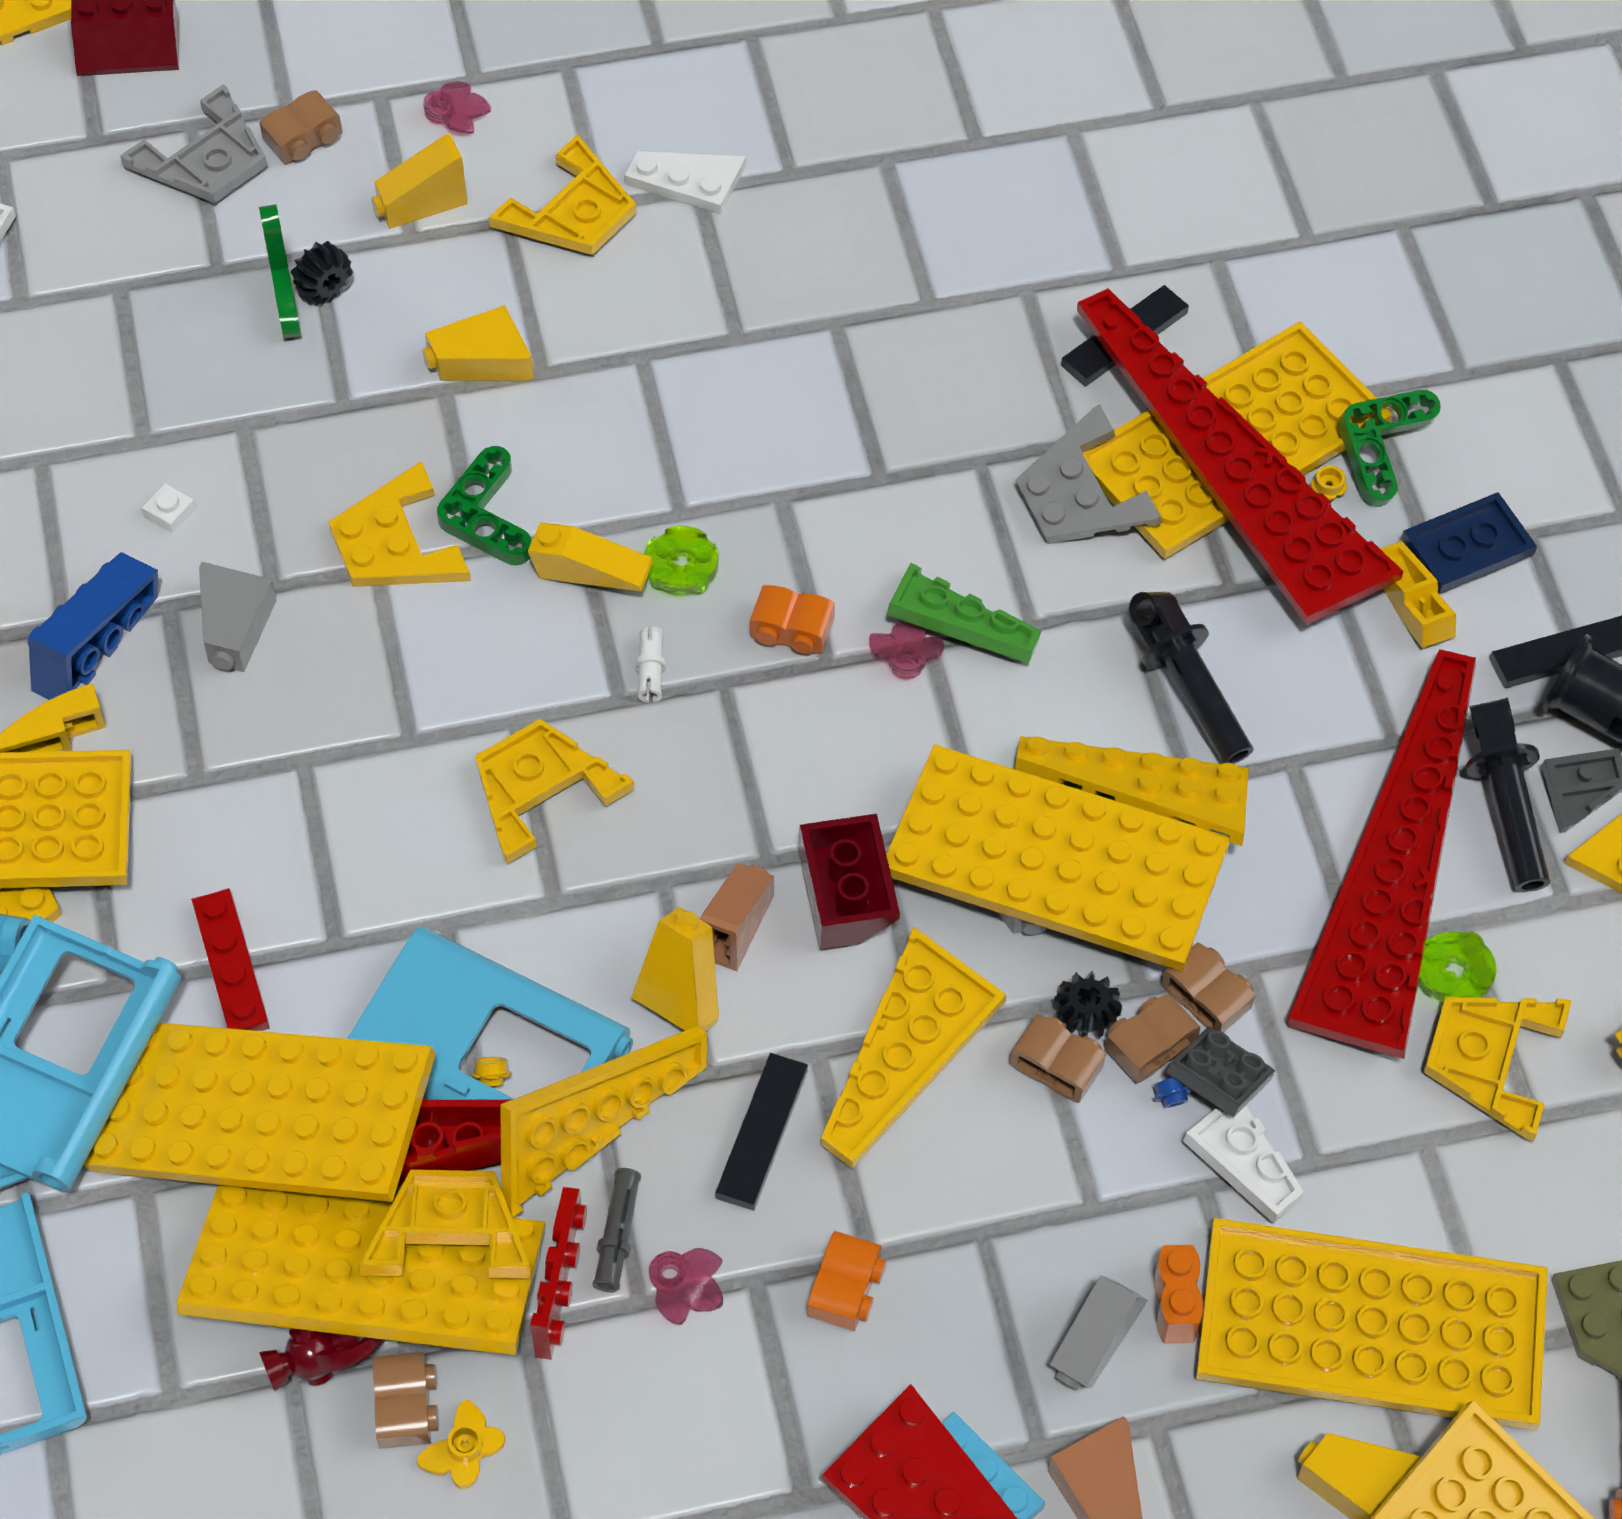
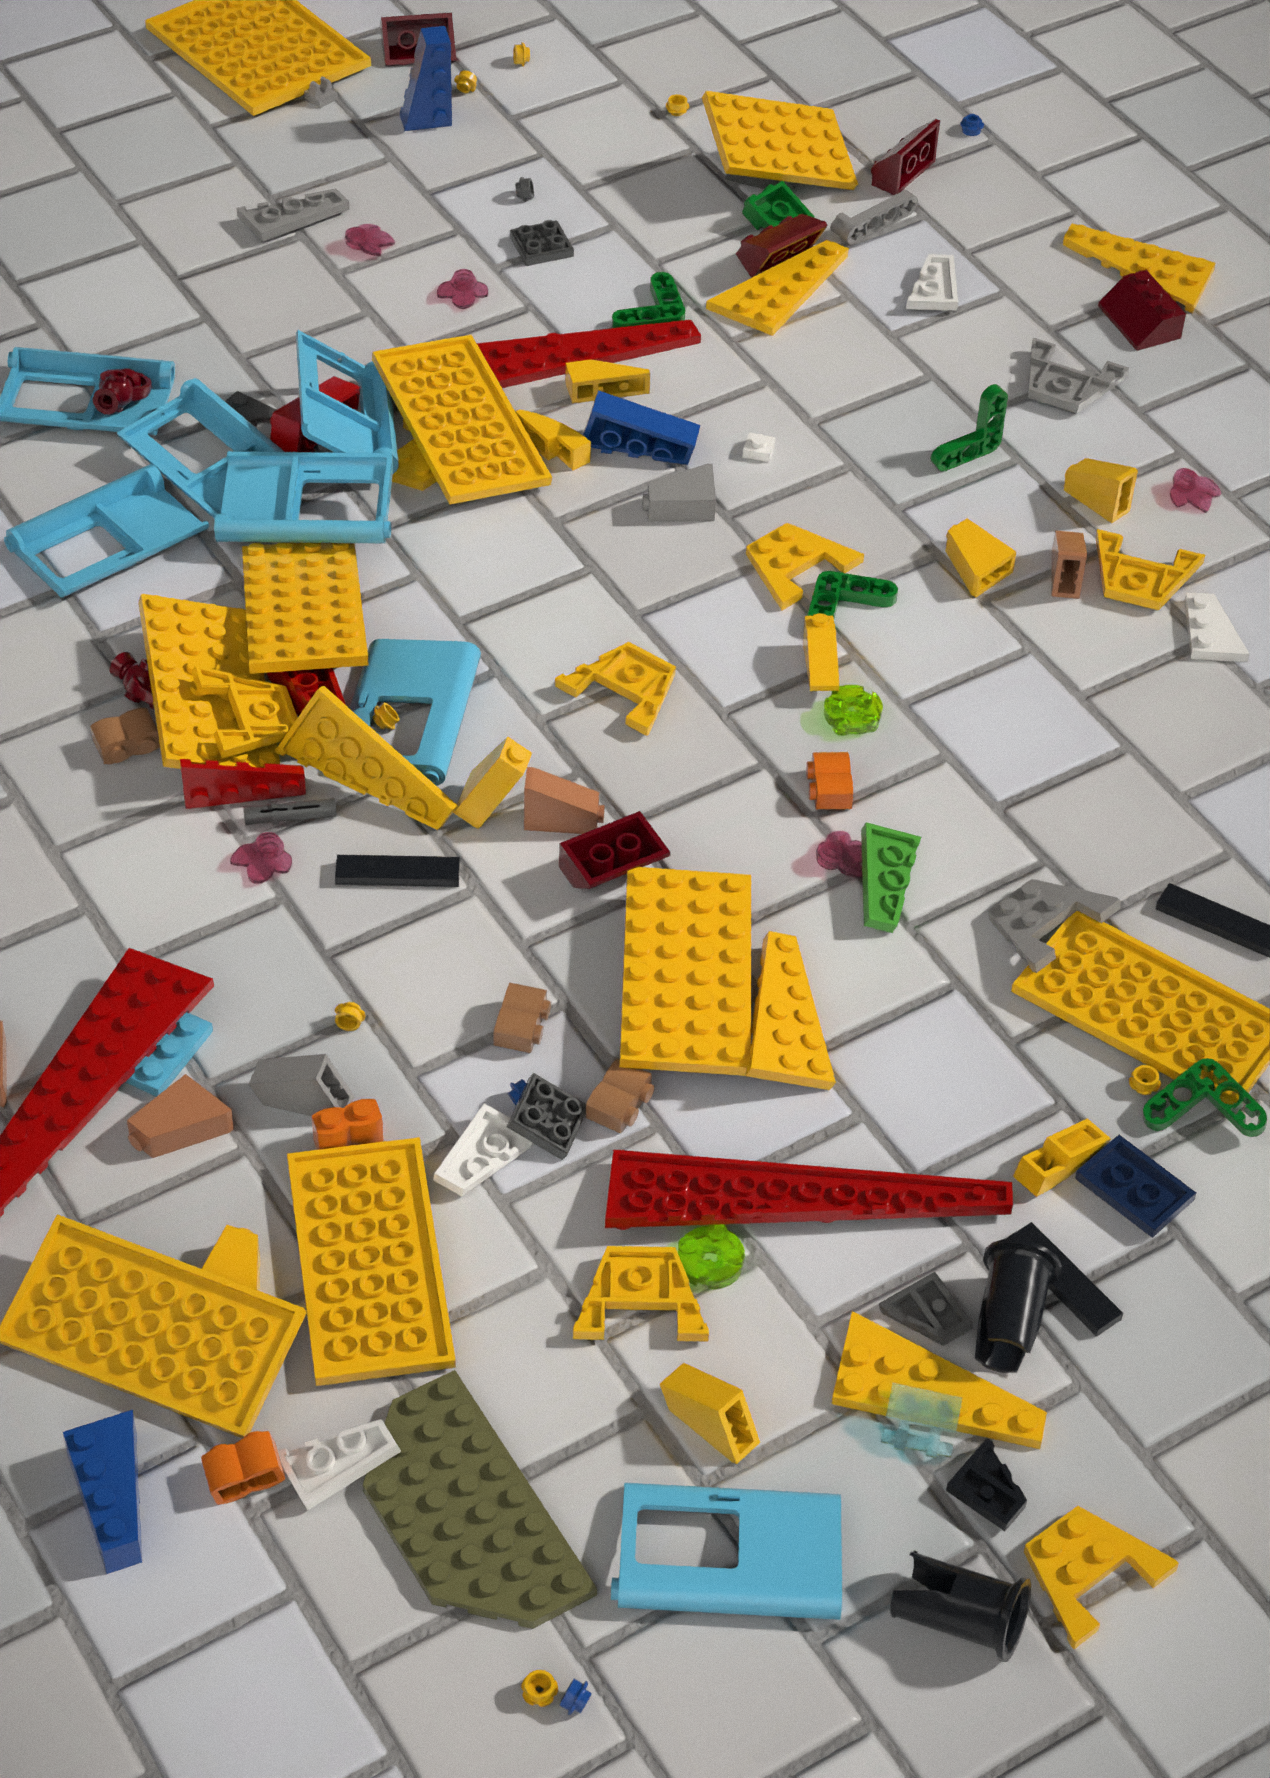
camera: 70 degrees right, 10 degrees down
(230, 961) = (417, 574): red plate -> none
(300, 127) = (1118, 416): medium nougat brick -> none
(321, 272) = (991, 456): black gear -> none
(463, 1448) = (105, 777): yellow animal -> none
(535, 262) = (1068, 564): none -> nougat slope
(650, 664) = (755, 716): white pin -> none
(845, 1281) = (292, 938): orange brick -> none
(916, 1032) = (502, 932): yellow wing -> none
(990, 1248) = (349, 1016): none -> yellow plate
(1087, 1005) = (573, 1025): black gear -> none
(1151, 1037) = (562, 1067): medium nougat brick -> none
(1175, 645) = (916, 1003): black piece -> none
(1286, 524) = (1079, 1044): red wing -> none
(1503, 764) = (915, 1237): black piece -> none

